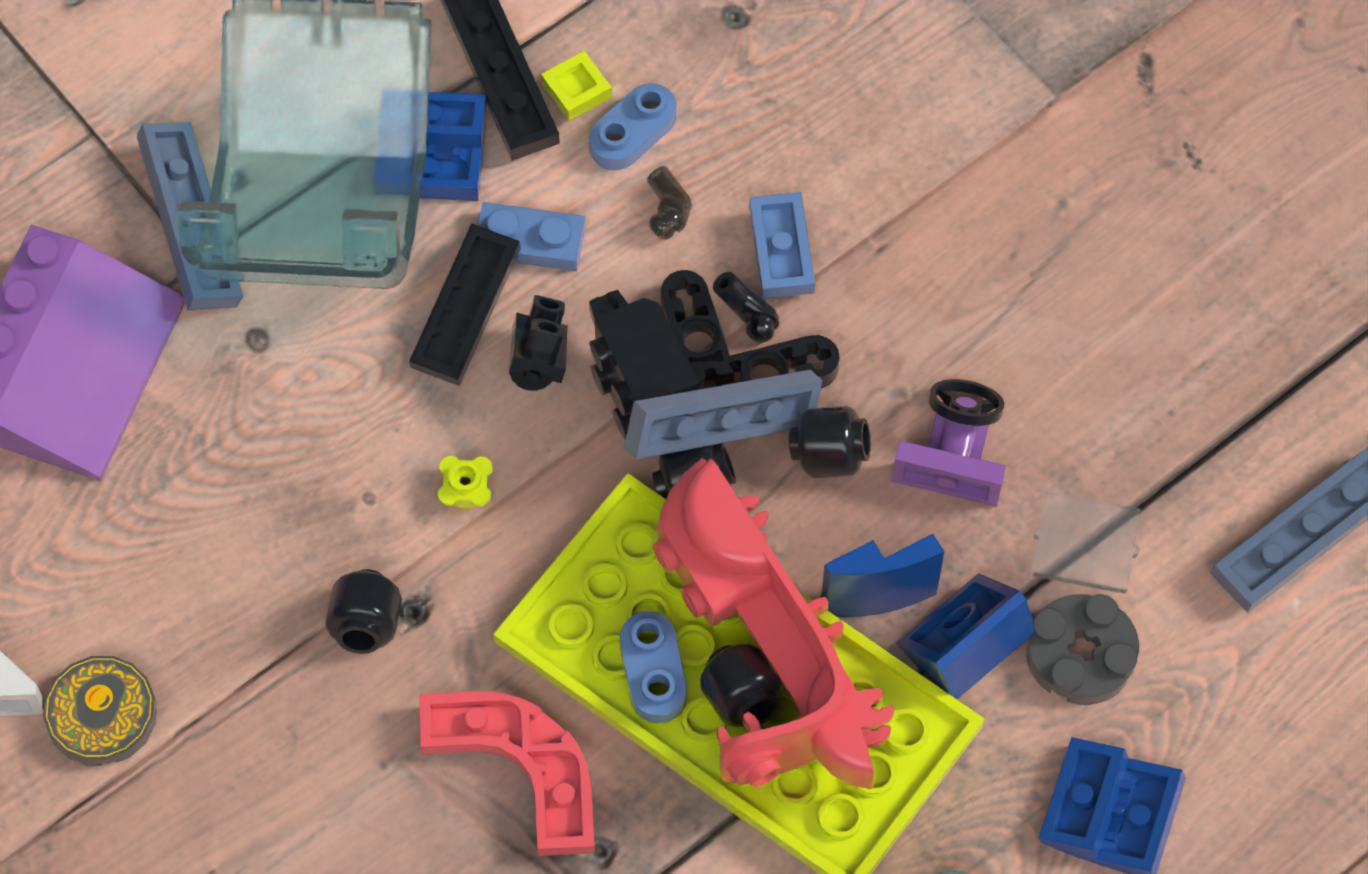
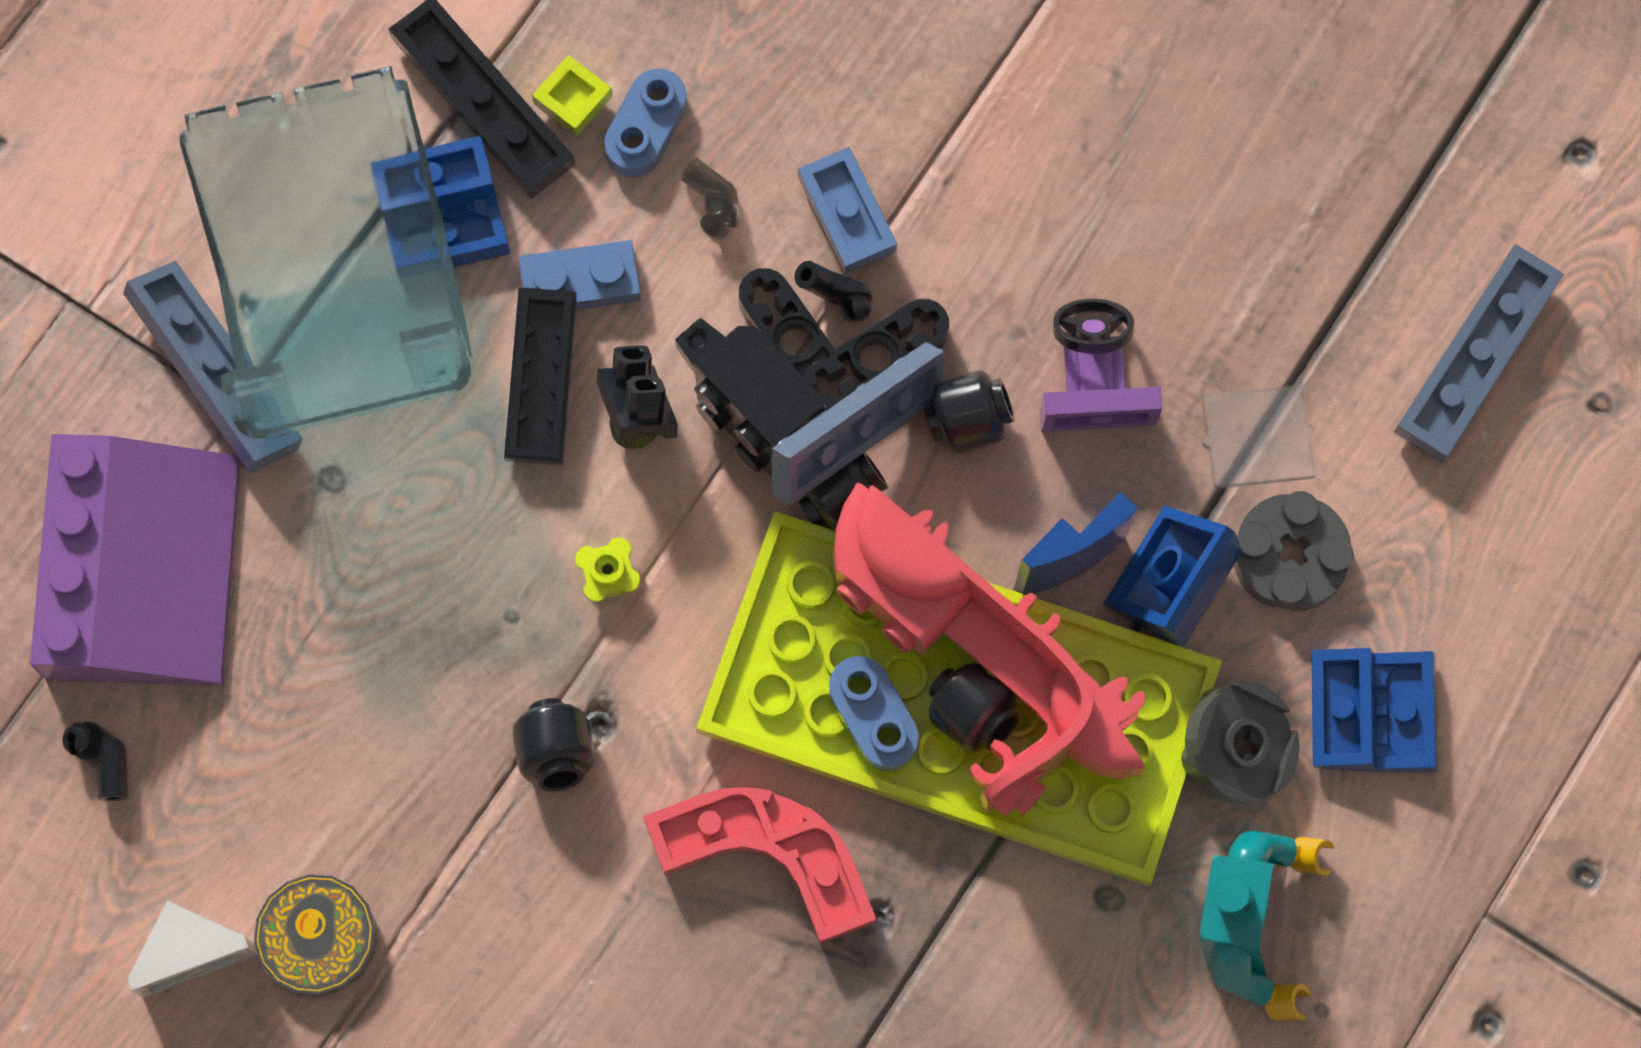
camera: 20 degrees left, 10 degrees up
(947, 802) = (1211, 749): none -> dark grey plate

